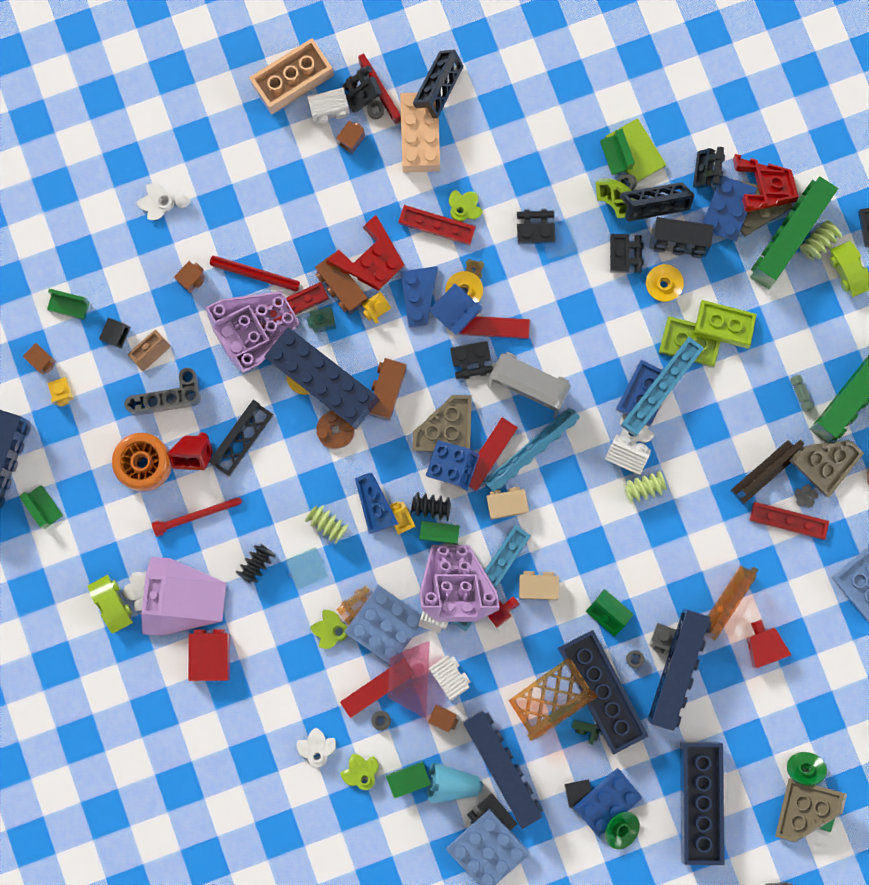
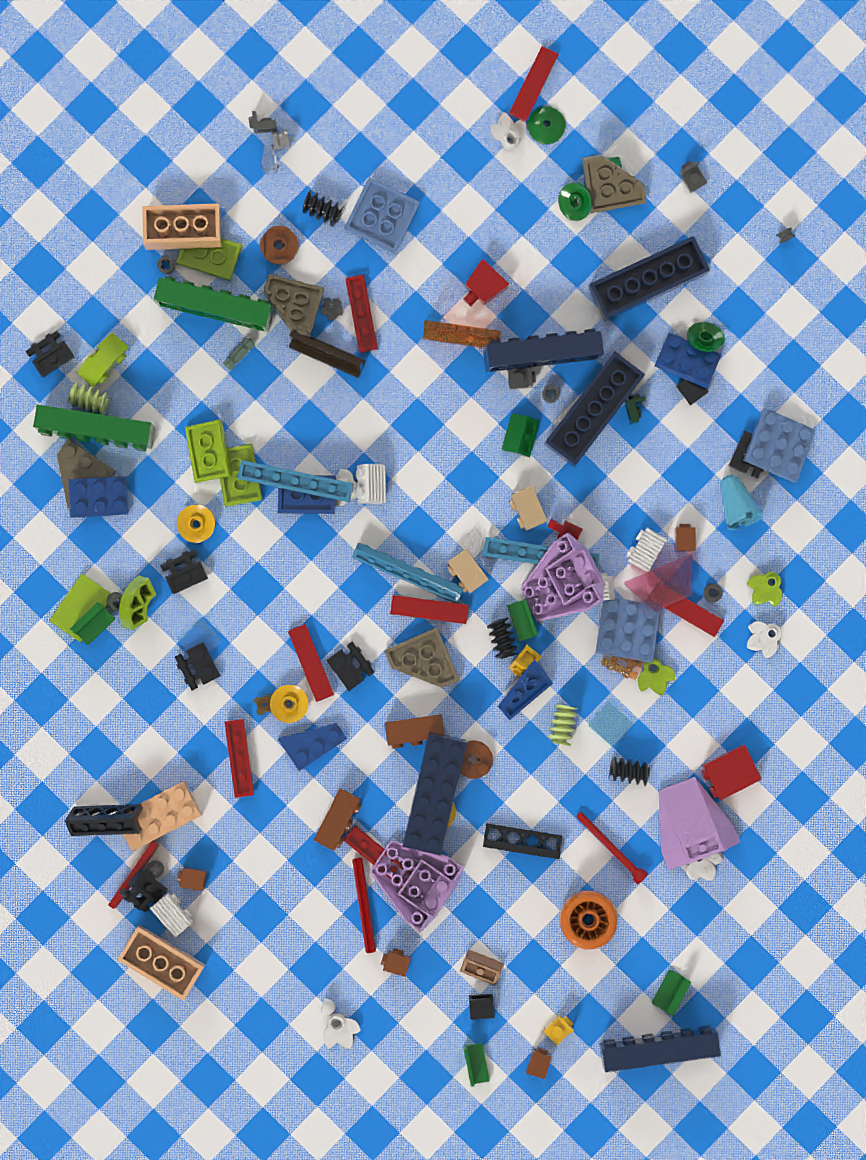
camera: 120 degrees left, 5 degrees up
(112, 608) = (724, 889): lime brick -> none
(162, 396) = (518, 931): dark grey beam -> none
(191, 452) = (558, 878): red torso -> none
(321, 320) = (379, 821): clear green brick -> none
(375, 307) = (343, 777): yellow bracket -> none
(377, 263) = (303, 795): red wing -> none
(408, 779) = (752, 543): green panel -> none
(452, 464) = (456, 637): blue bracket -> none
(455, 309) = (312, 702): blue bracket -> none
(465, 203) = (206, 741): lime plate -> none
(502, 769) = (706, 462): dark blue brick -> none
(530, 382) = (349, 601): light grey windscreen -> none
(562, 713) = (635, 439): clear orange fence -> none
(645, 487) = (394, 455): yellowish green piece -> none
(659, 204) = (125, 560): black fence -> none
(681, 237) = (147, 527): black brick -> none
(704, 167) = (70, 536): black plate -> none
(774, 184) = (55, 465): red wing -> none

